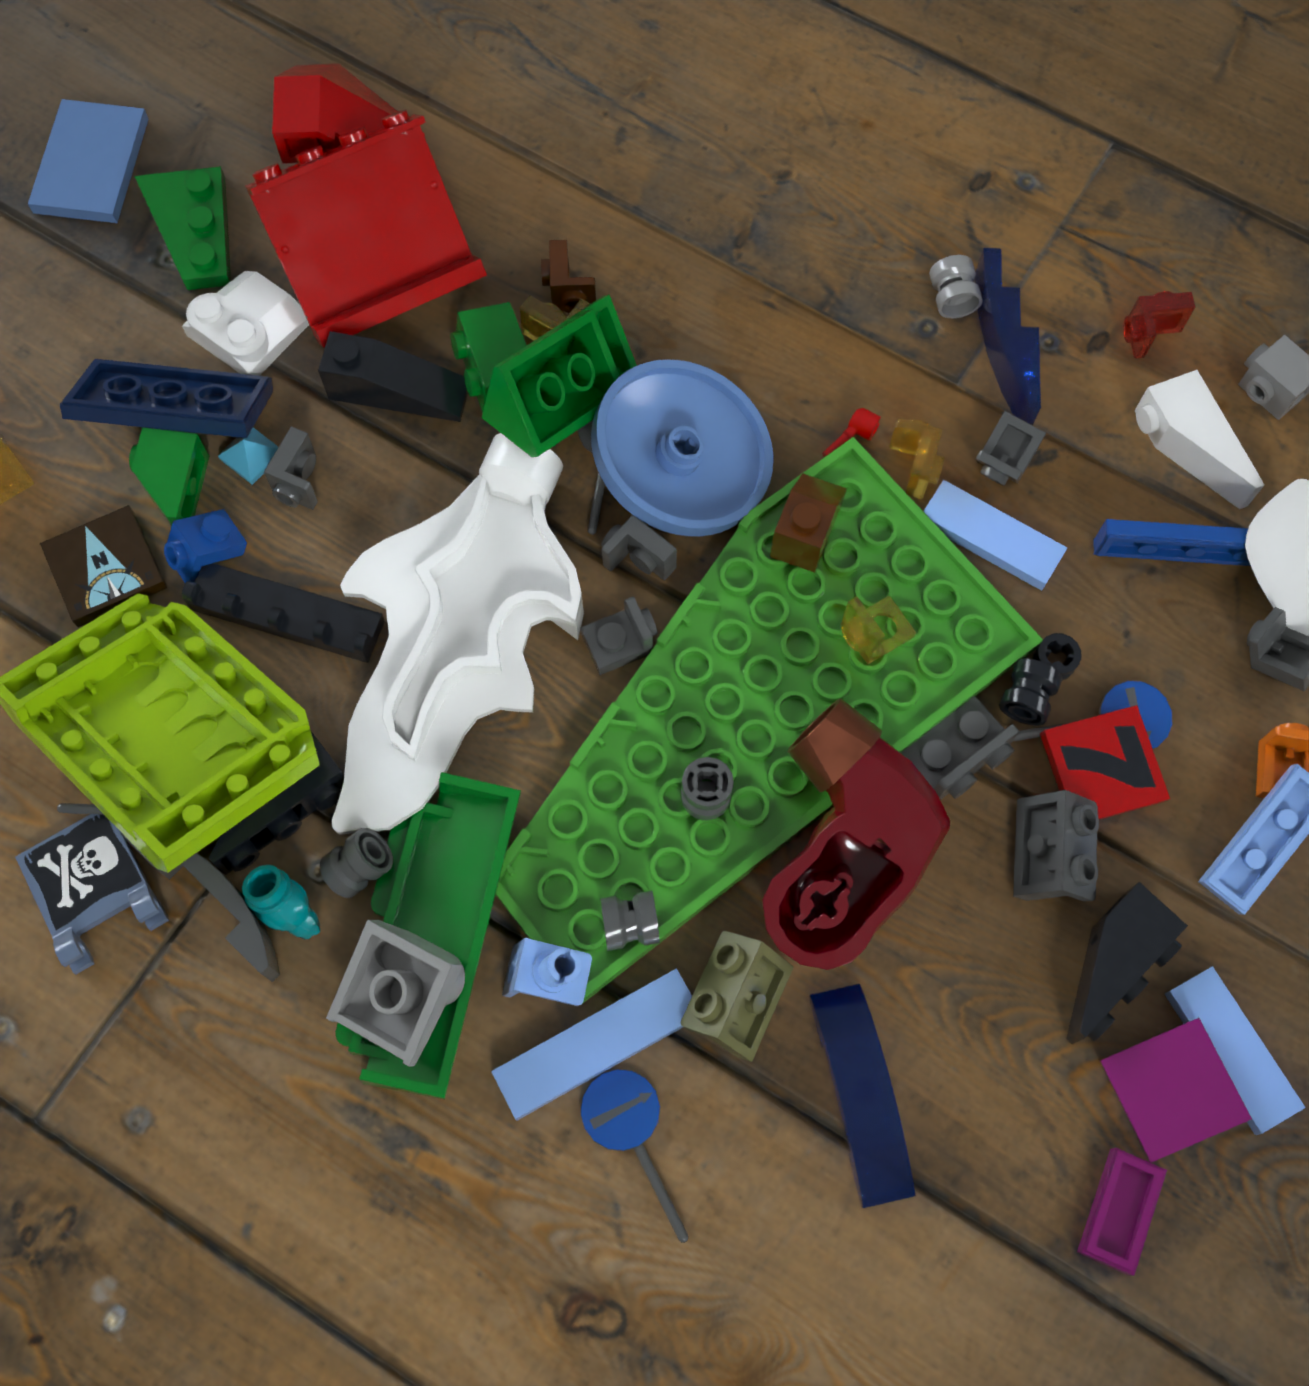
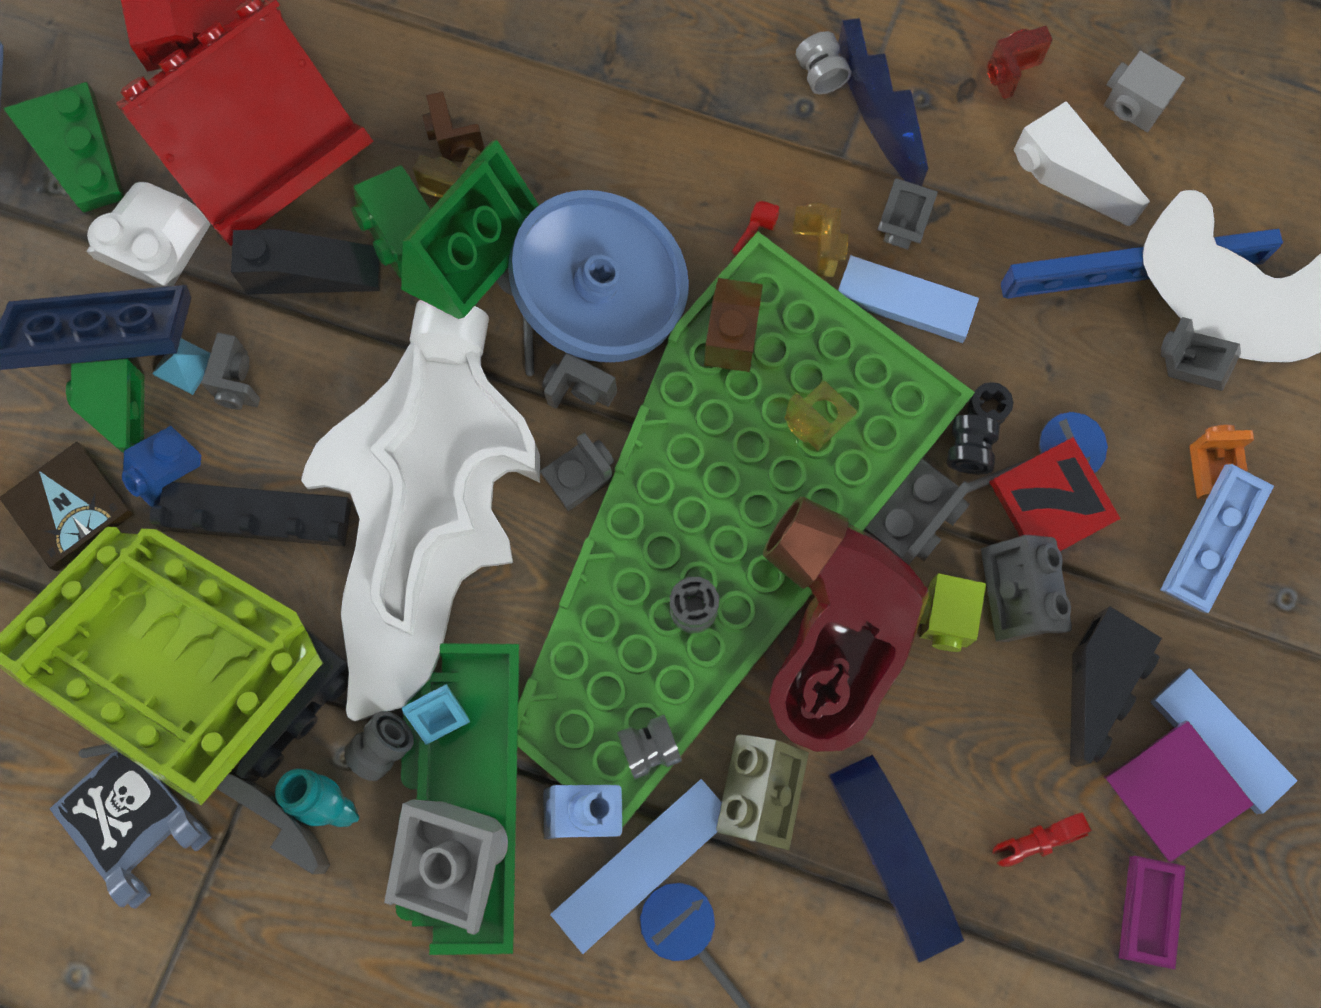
camera: 10 degrees left, 5 degrees up
(421, 842) = (436, 714): none -> medium azure slope
(972, 855) = (952, 612): none -> lime brick
(1041, 1107) = (1043, 840): none -> red piece

